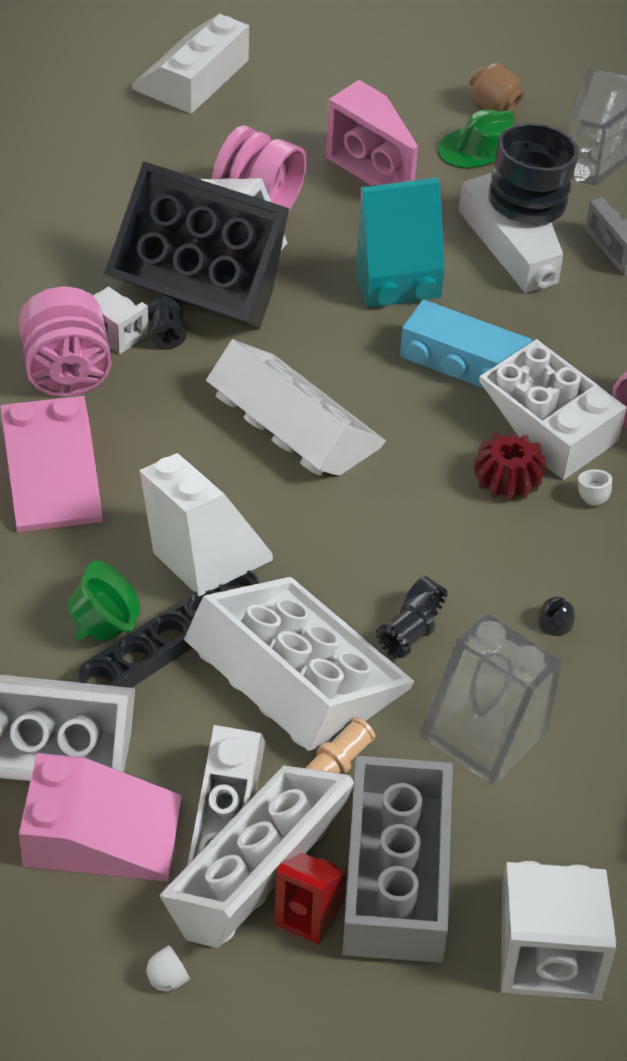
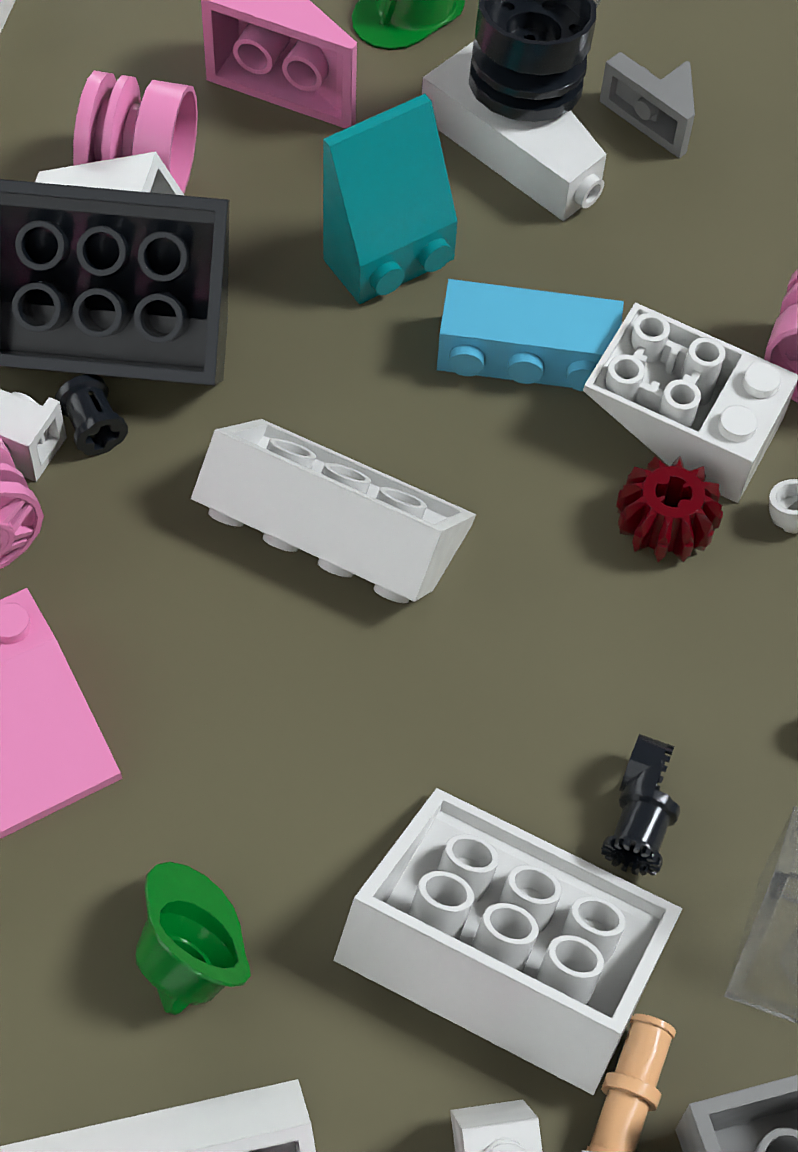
camera: 20 degrees left, 10 degrees up
(147, 640) = (276, 975): black beam -> none
(197, 527) = (286, 769): white slope -> none

